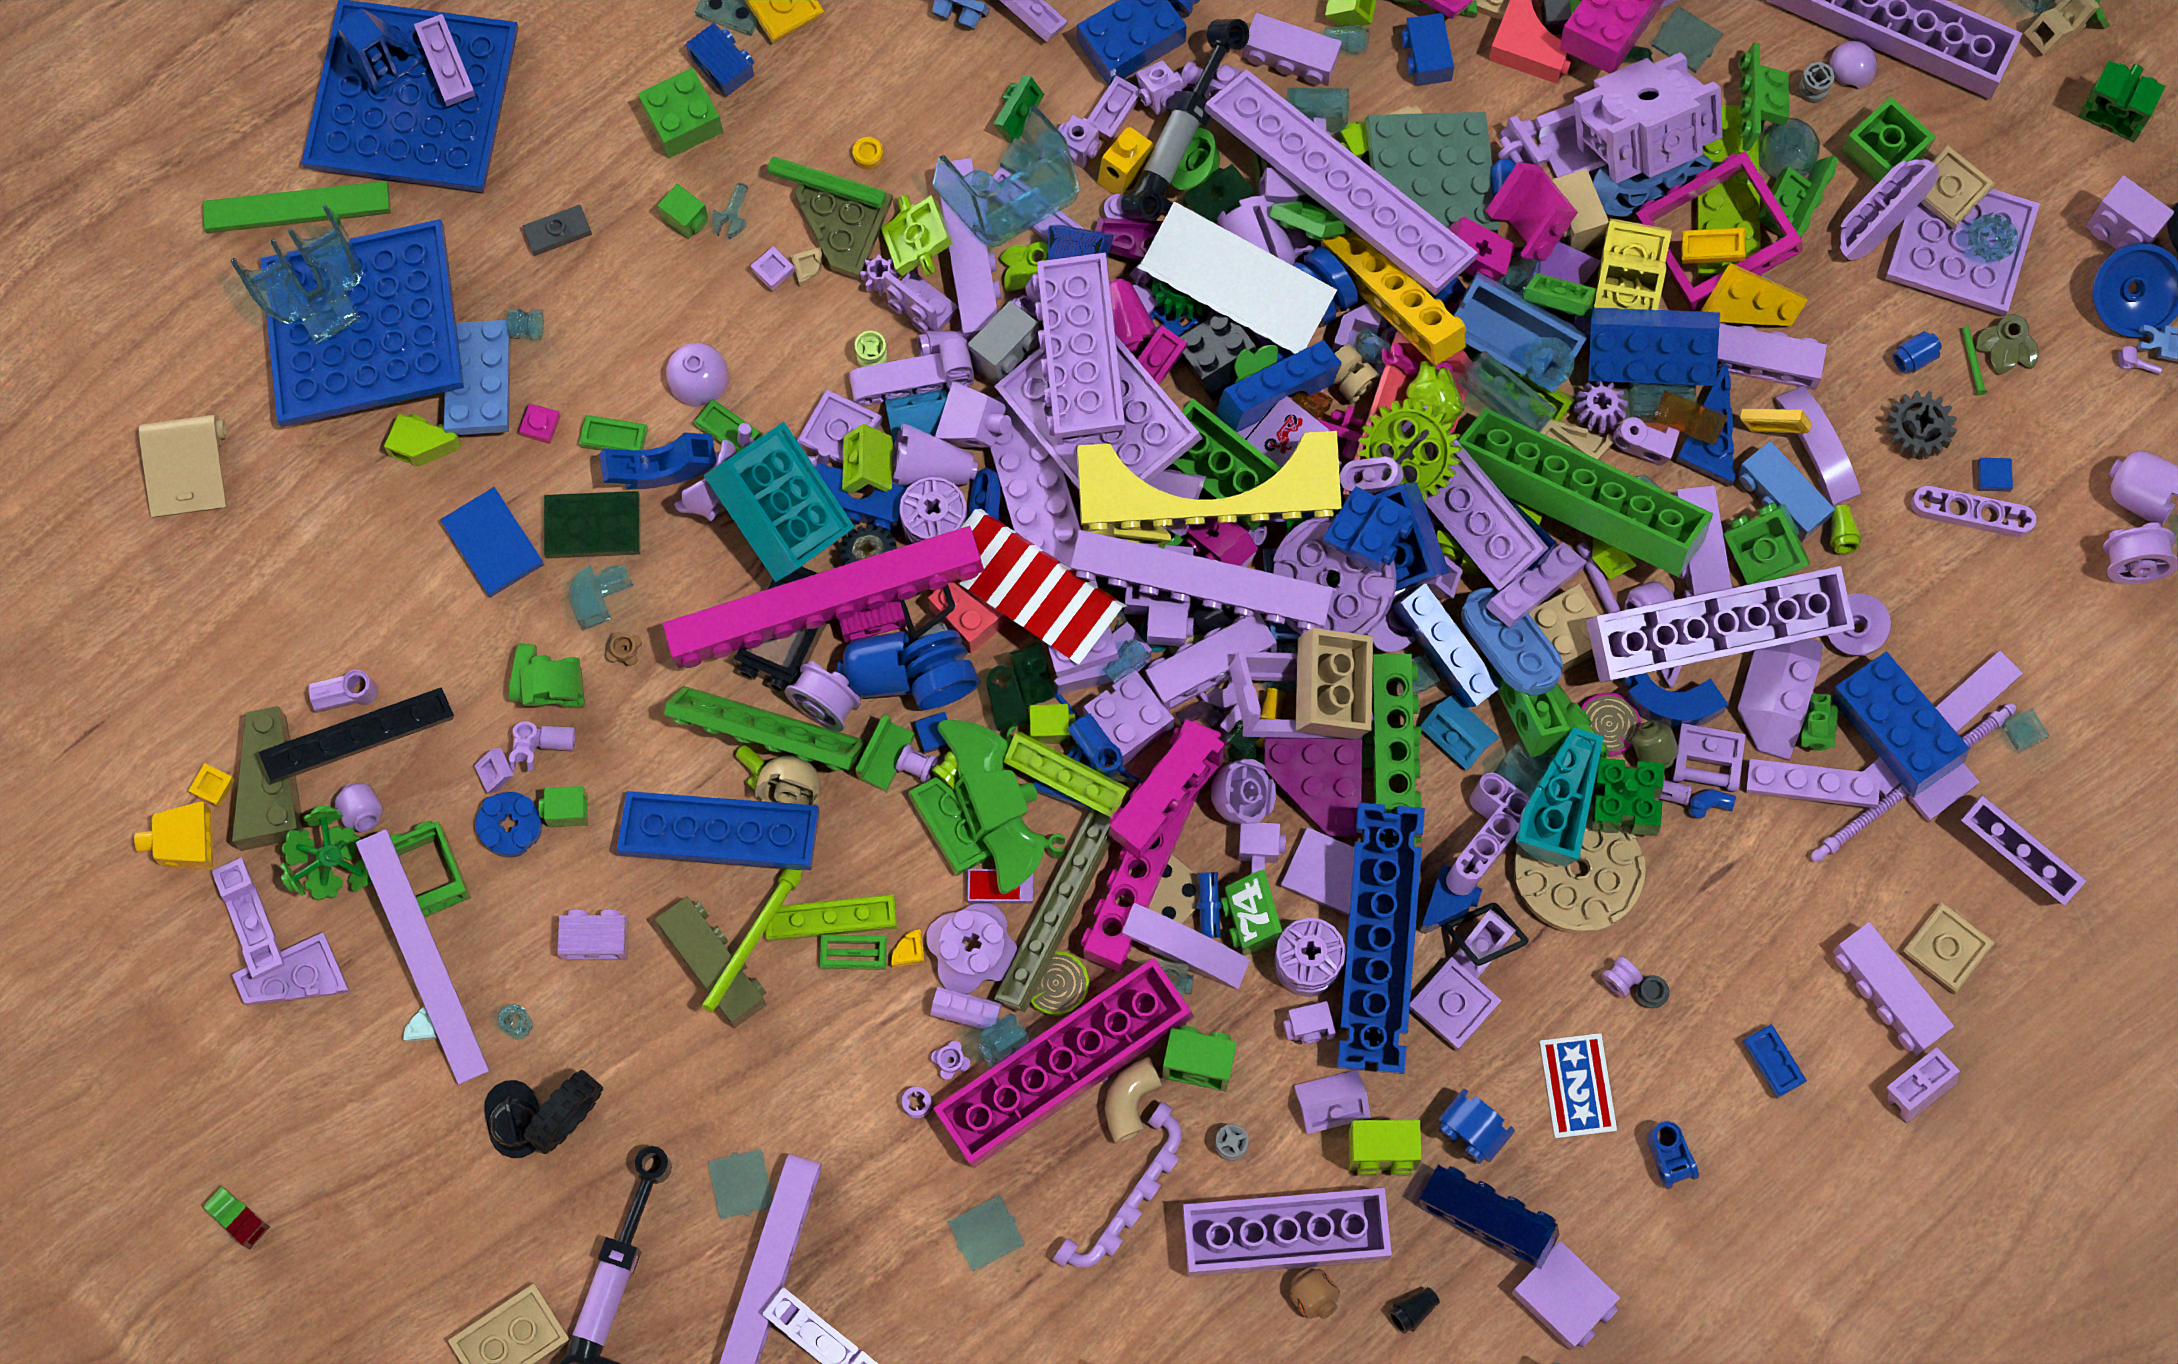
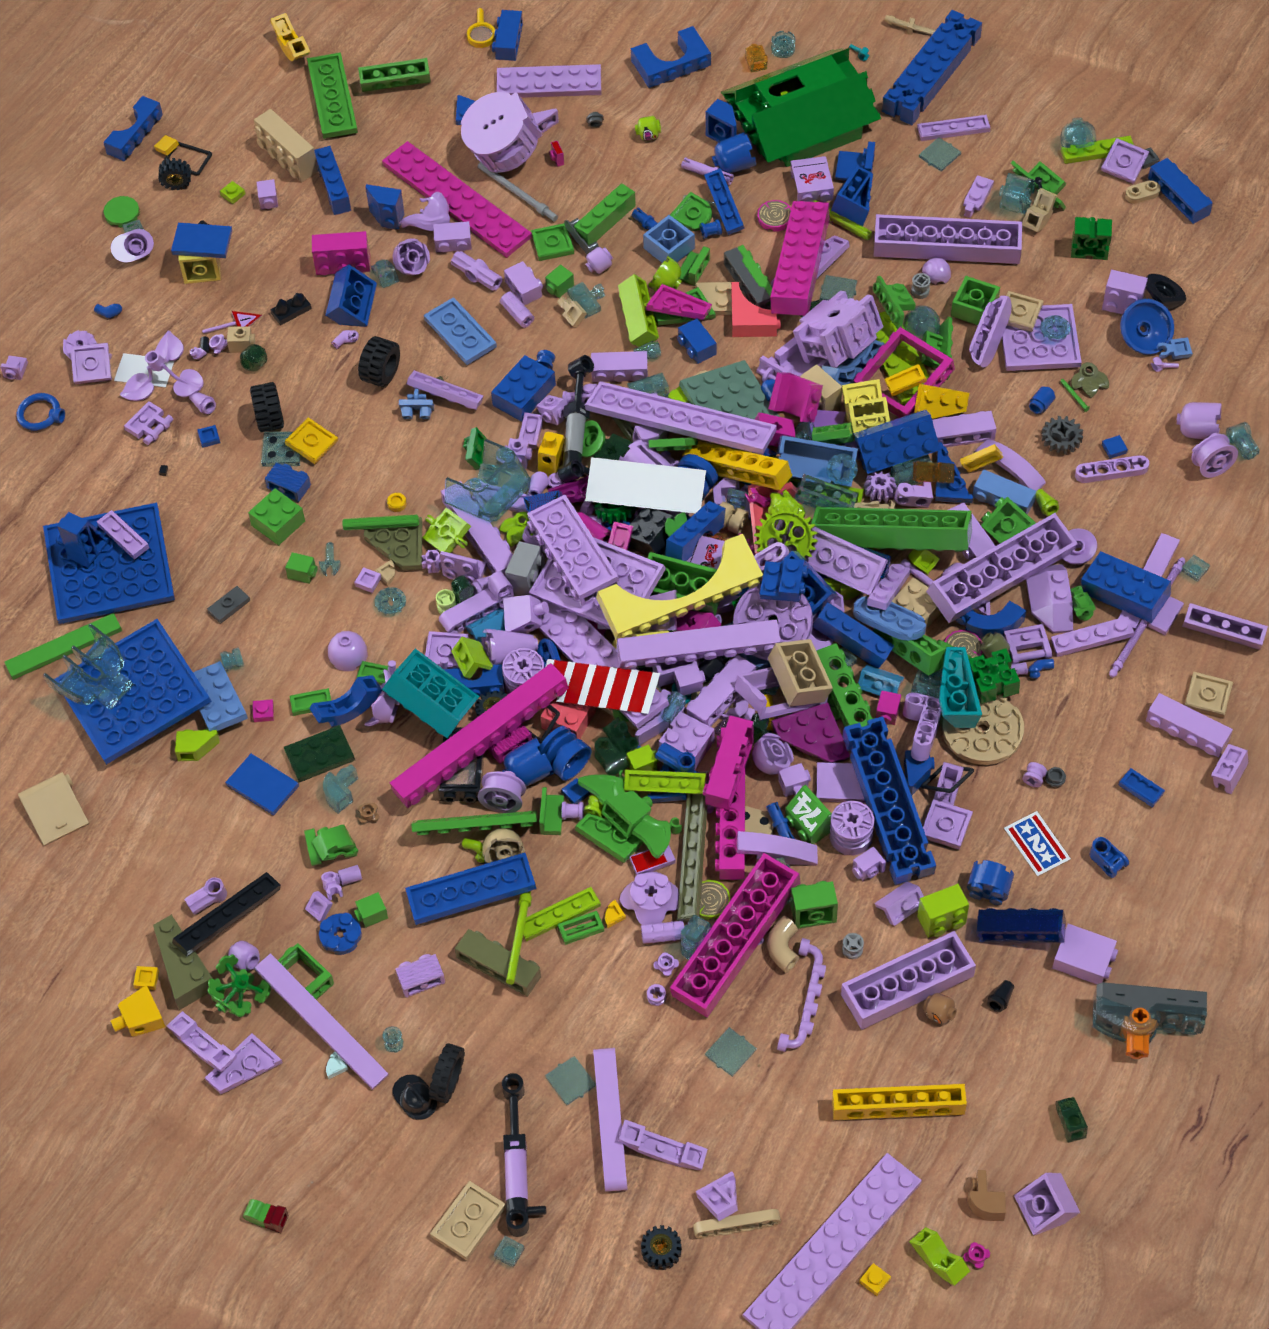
camera: 20 degrees left, 15 degrees down
(783, 306) = (397, 597): none -> clear light blue gear
(900, 342) = (462, 589): none -> clear green leg
(1086, 205) = (538, 483): none -> lavender cone
(1450, 781) = (888, 706): none -> dark pink brick

